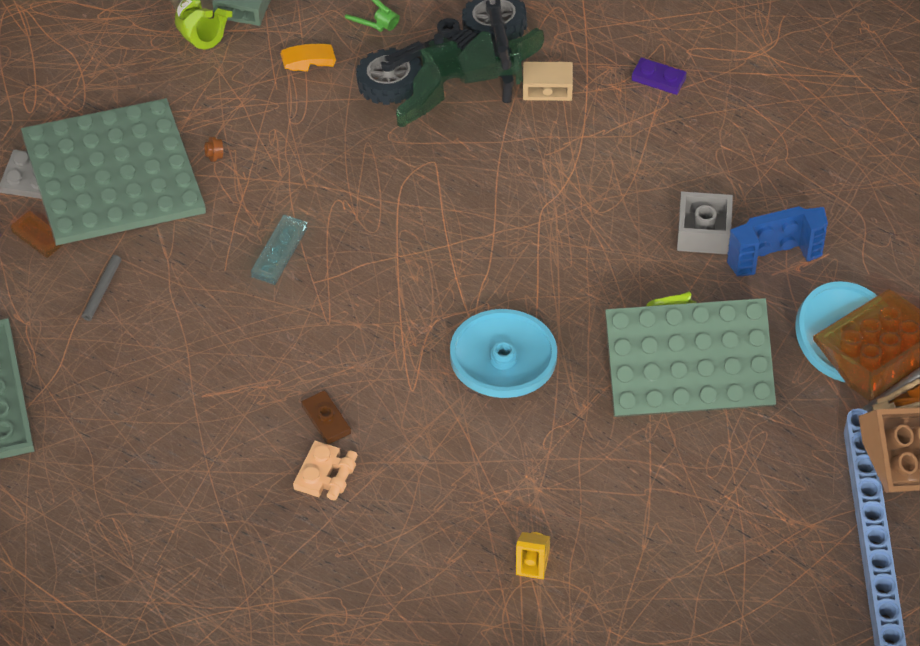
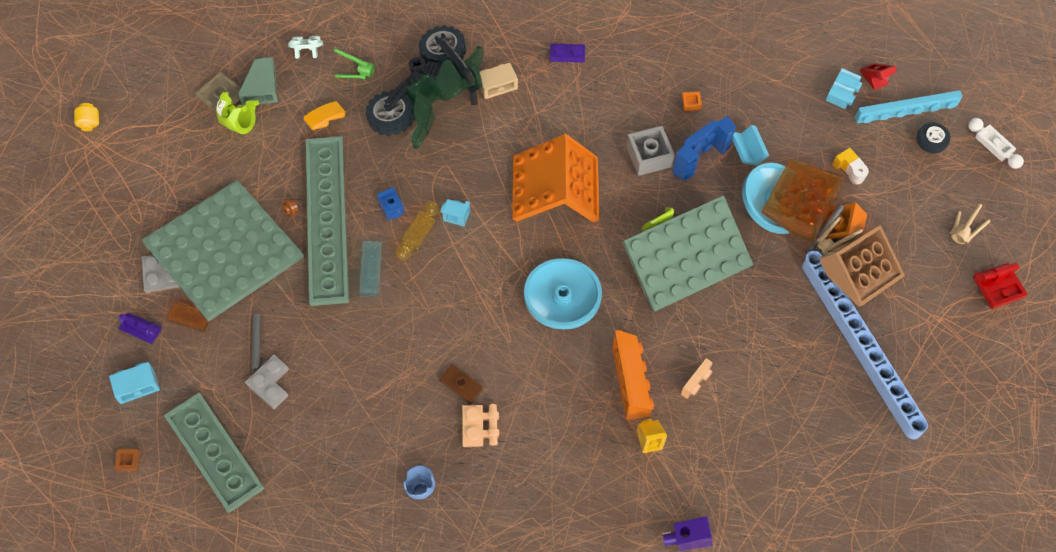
camera: 25 degrees left, 10 degrees up
(91, 333) = (264, 382): none -> light grey plate
(219, 505) = (419, 482): none -> medium blue hair
(251, 179) = (326, 222): none -> sand green plate
(339, 183) = (390, 204): none -> blue brick
(358, 225) = (417, 230): none -> clear yellow plate
(417, 218) = (455, 212): none -> medium azure brick
(543, 475) = (631, 376): none -> orange slope
(573, 211) = (555, 175): none -> orange bracket
(627, 510) = (702, 373): none -> light nougat plate
(795, 182) = (691, 101): none -> orange plate
(844, 259) = (750, 146): none -> medium azure panel

